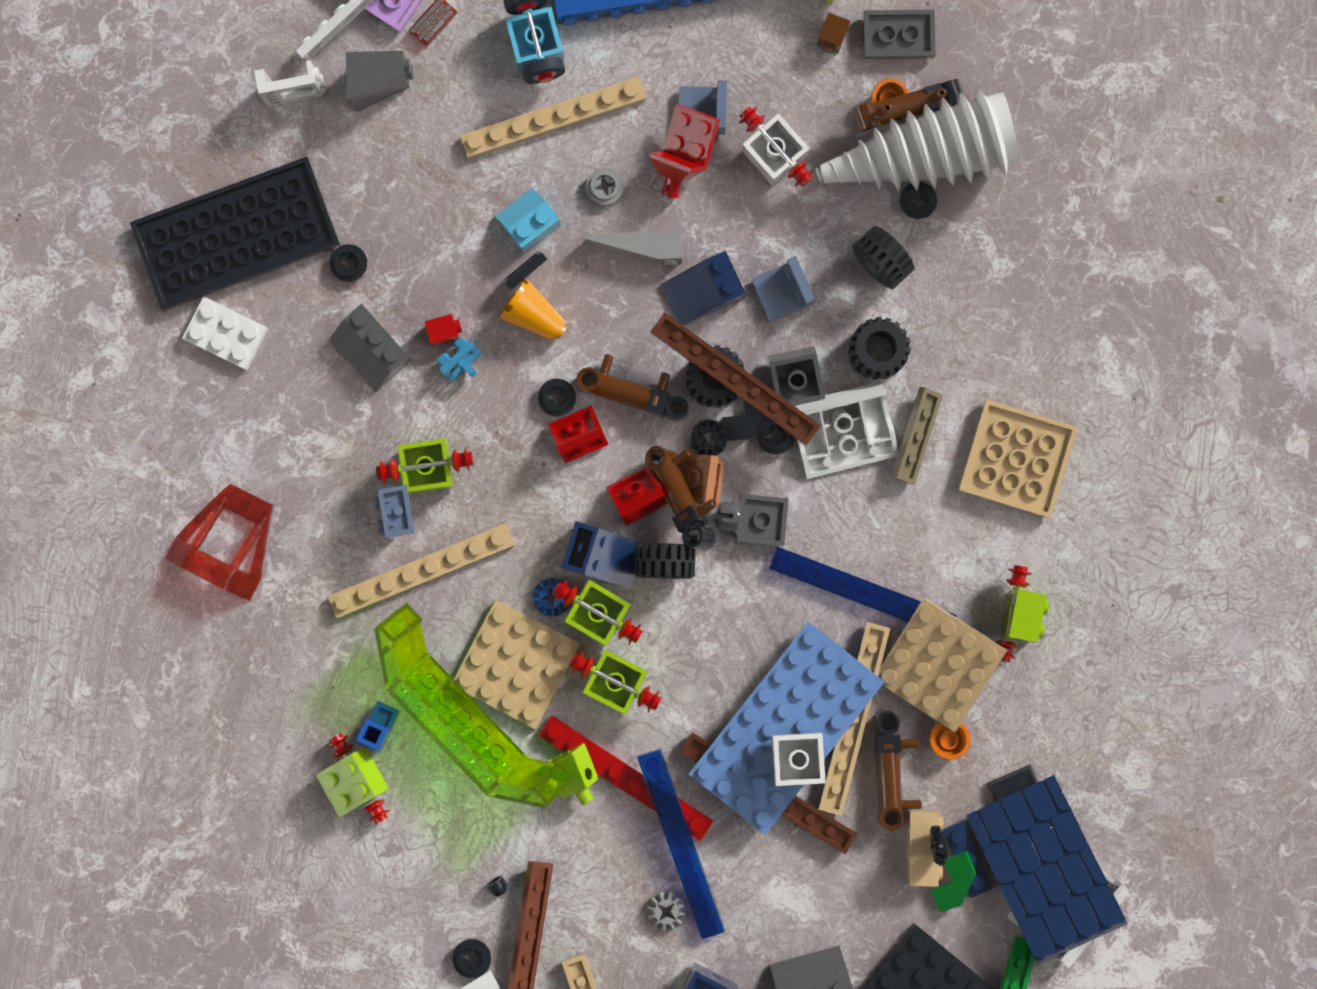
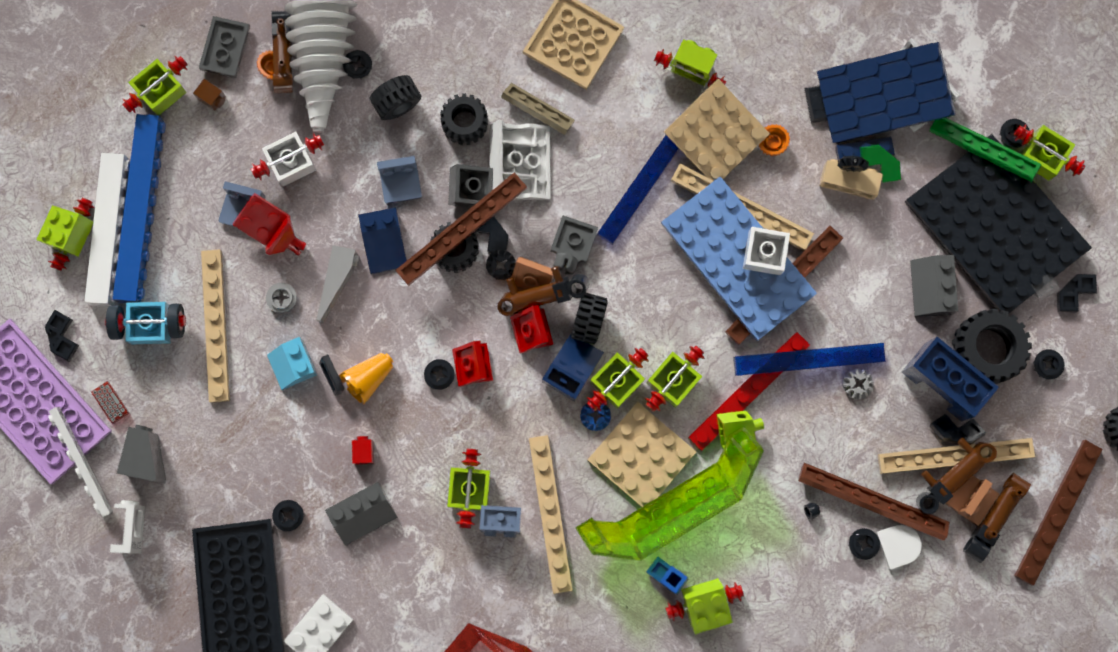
camera: 85 degrees left, 5 degrees down
(461, 361) = (391, 441): dark azure hips -> none
(653, 401) = (461, 300): reddish brown piece -> none
(769, 445) = (518, 220): black gear -> none
(888, 769) = (770, 187): reddish brown piece -> none

